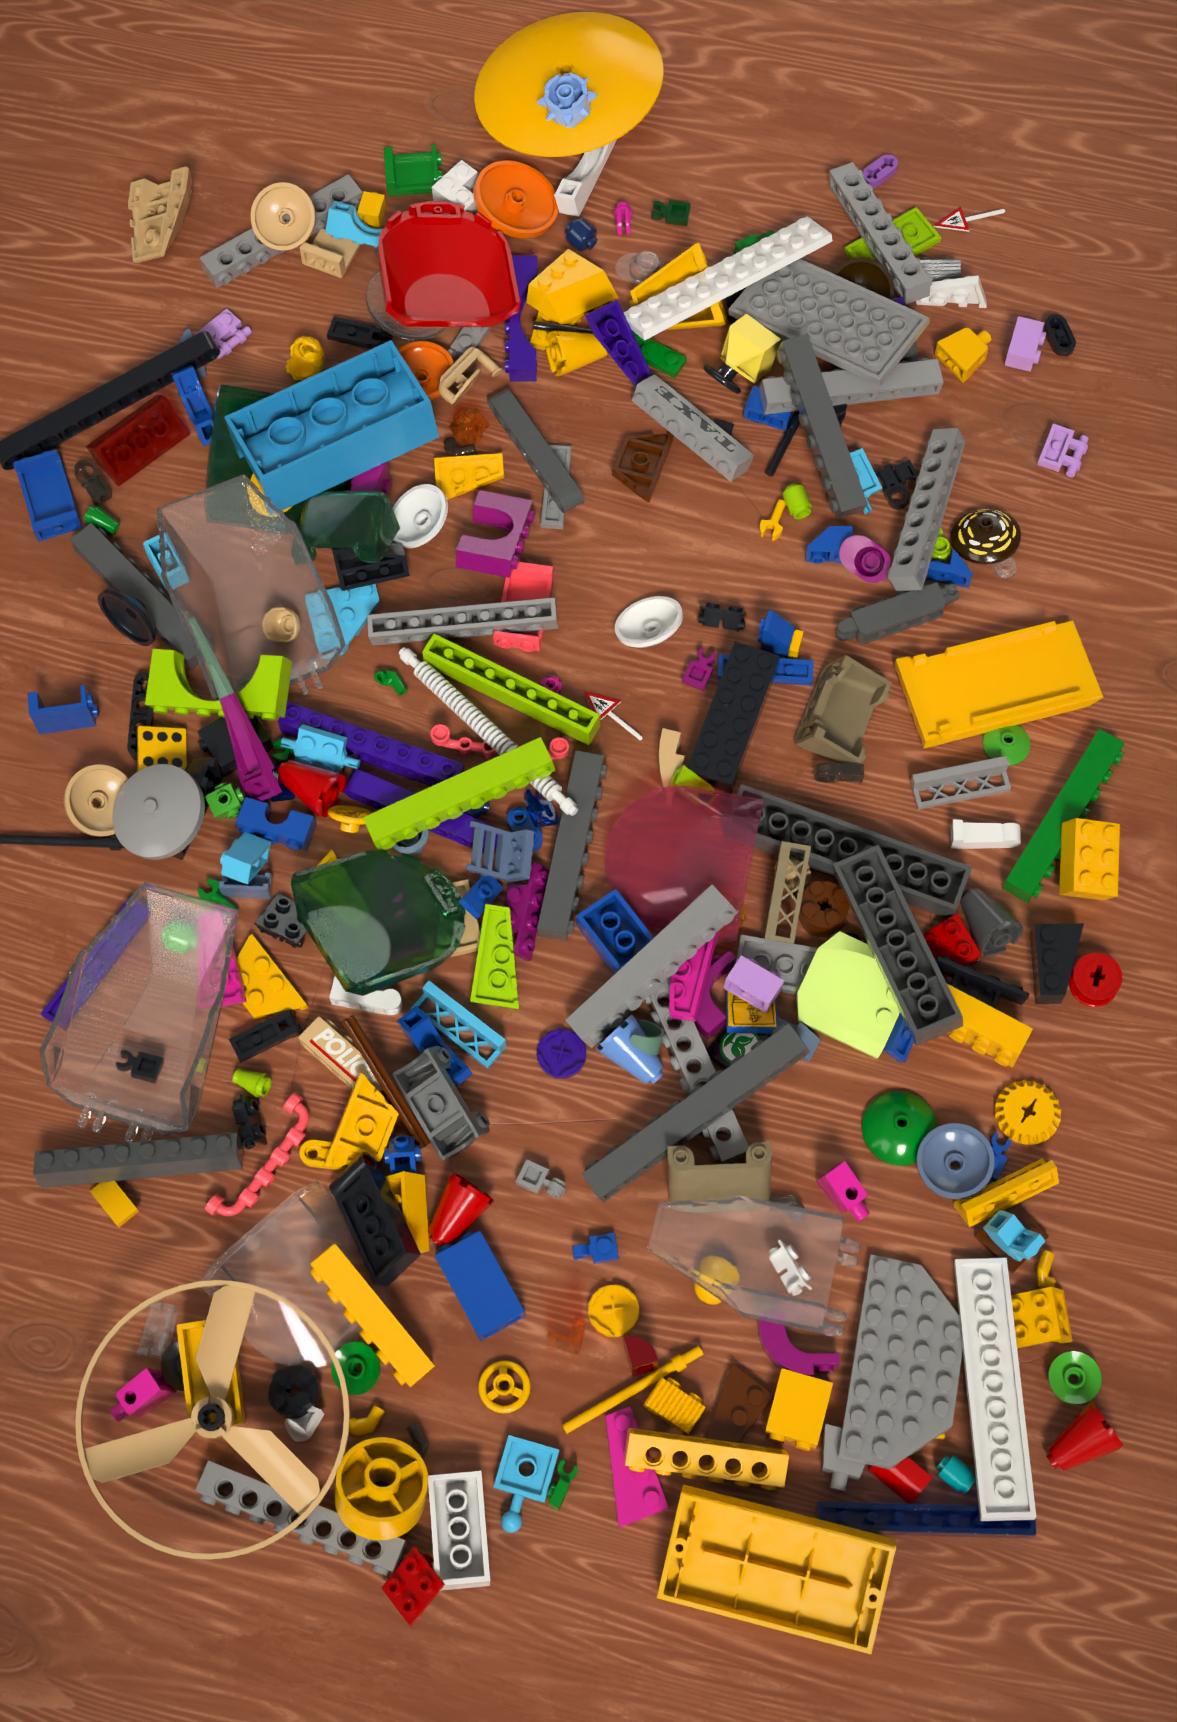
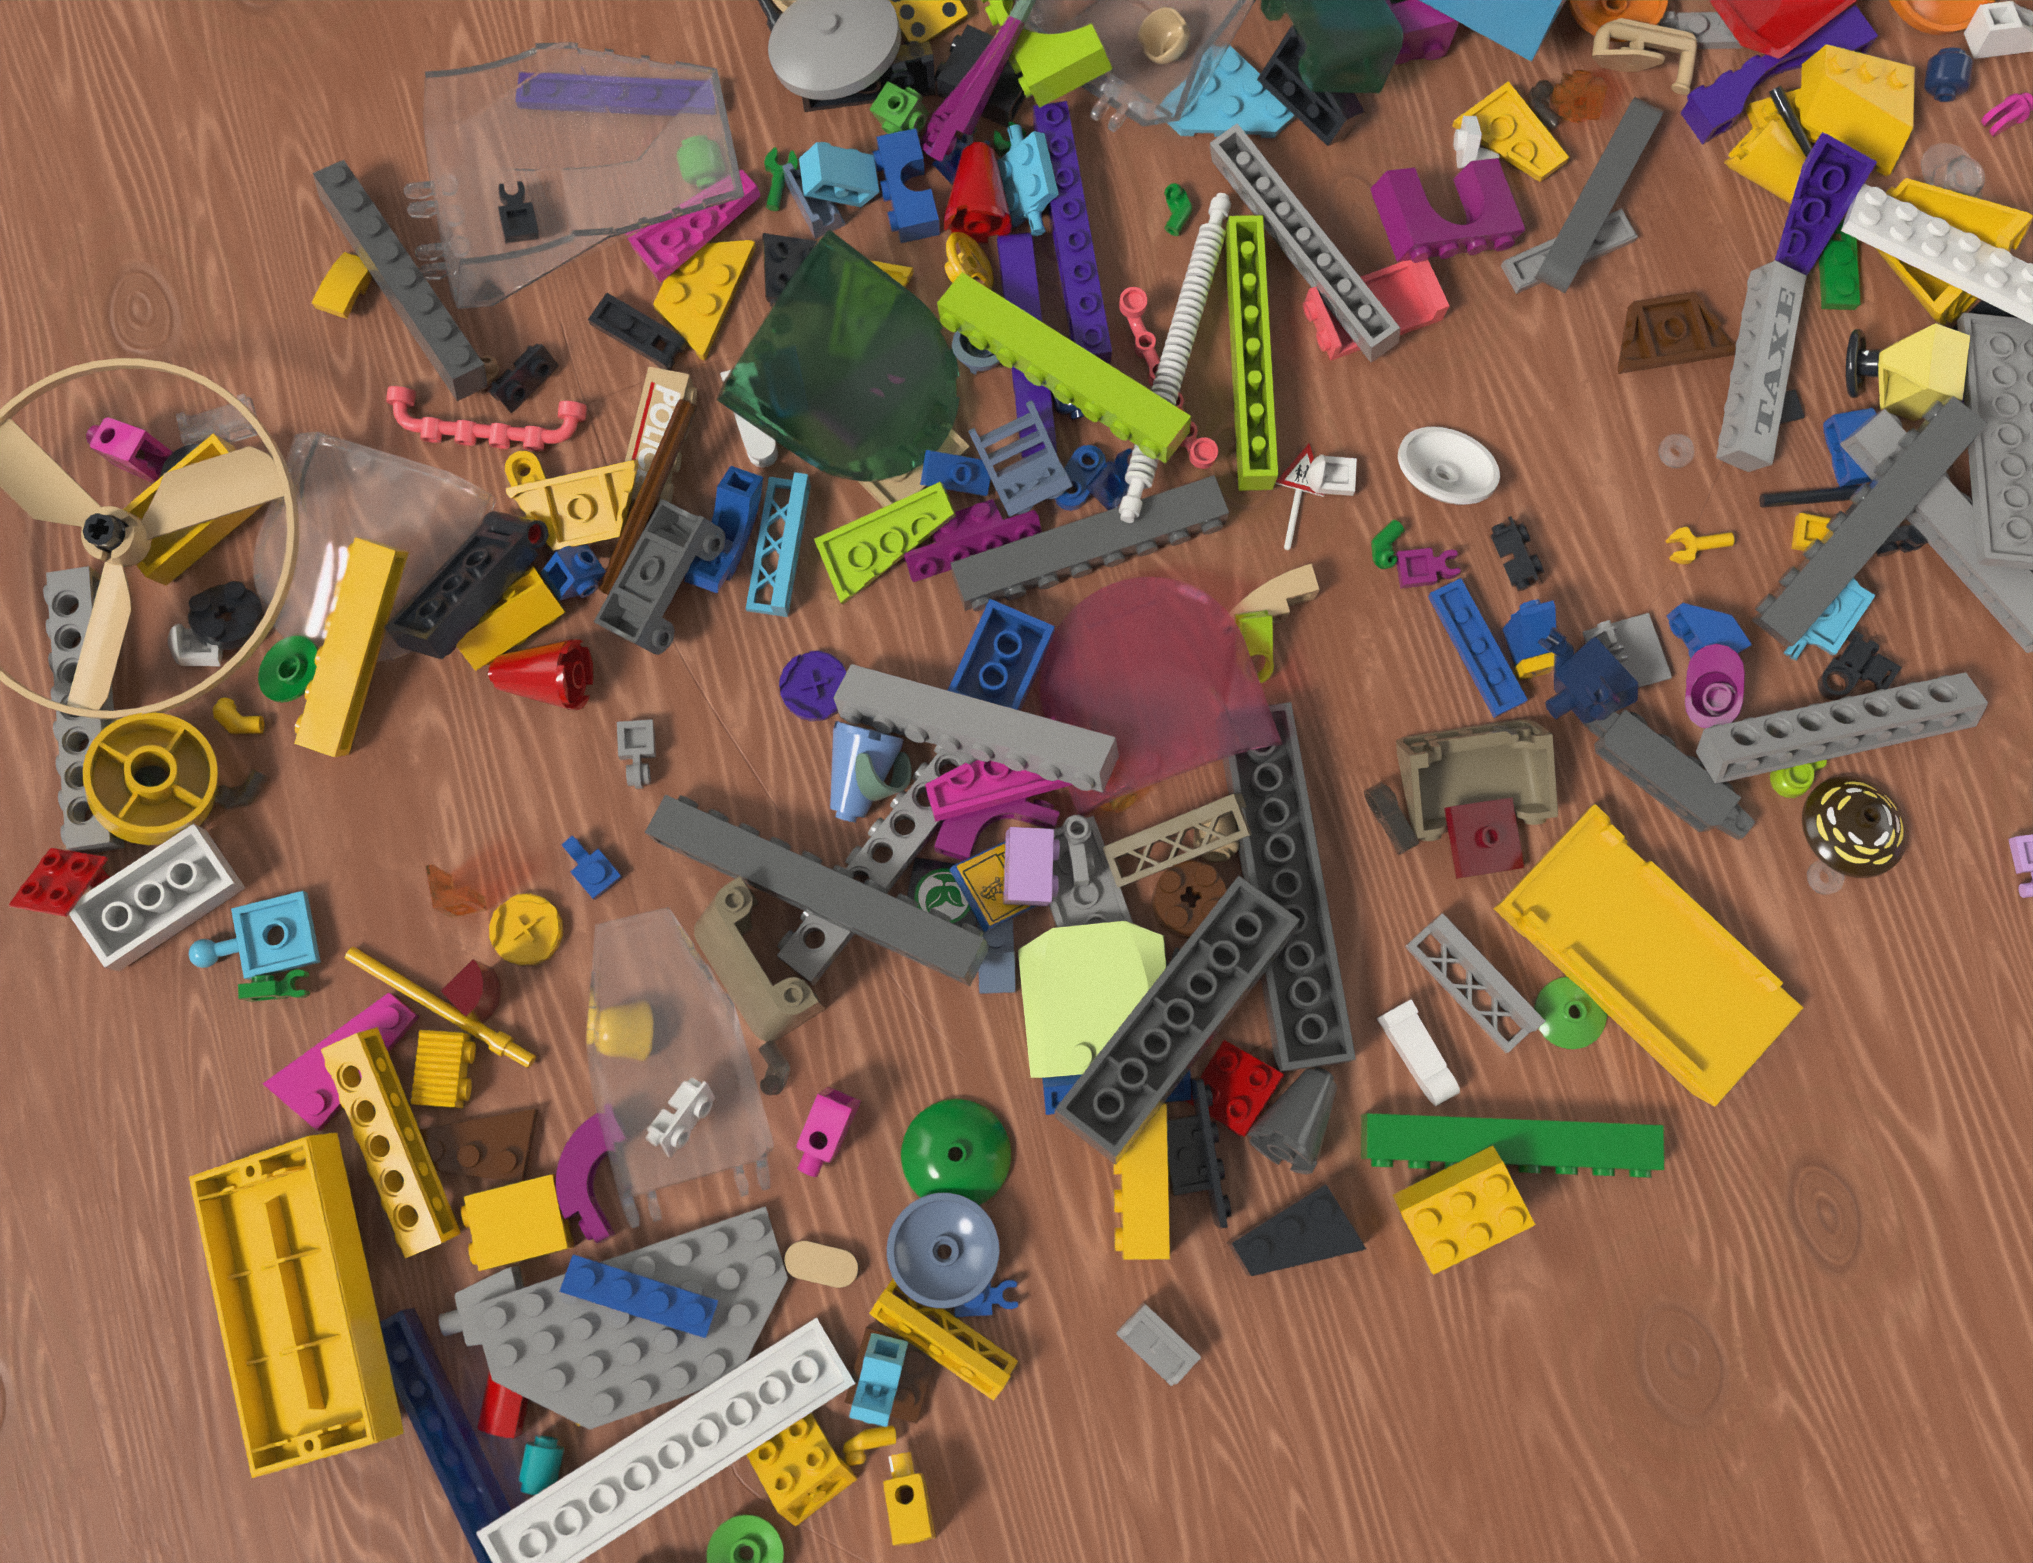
camera: 55 degrees right, 10 degrees up
(253, 1082) = (572, 353): lime cone -> none
(420, 515) = (1415, 108): white dish -> none
(459, 501) = (1468, 141): none -> white plate
(479, 1285) = (465, 751): blue panel -> none
(503, 1376) = (354, 844): yellow piece -> none
(552, 680) = (1288, 408): dark pink plate -> none
(613, 688) = (1332, 475): none -> white plate
(670, 685) = (1382, 545): none -> green arm
(715, 495) = (1682, 444): none -> clear plate
(733, 715) = (1383, 641): black brick -> none
(767, 954) = (1080, 862): none -> light grey plate
(797, 501) = (1744, 556): lime brick -> none
(803, 459) = (1807, 529): none -> yellow tile
(816, 594) = (1634, 646): none -> light grey hinge
(824, 620) = (1589, 681): none -> dark blue torso
(880, 729) = (1484, 837): none -> dark red plate
(887, 1351) = (638, 1296): none -> blue plate
(923, 1241) = (821, 1264): none -> tan tile
(953, 573) = (1770, 814): blue slope -> none
(1034, 1128) = (1052, 1288): yellow gear -> none
(1075, 1072) = (1158, 1344): none -> light grey hinge
(1104, 1265) = (910, 1521): none -> yellow torso
(1108, 977) = (1310, 1284): red piece -> none

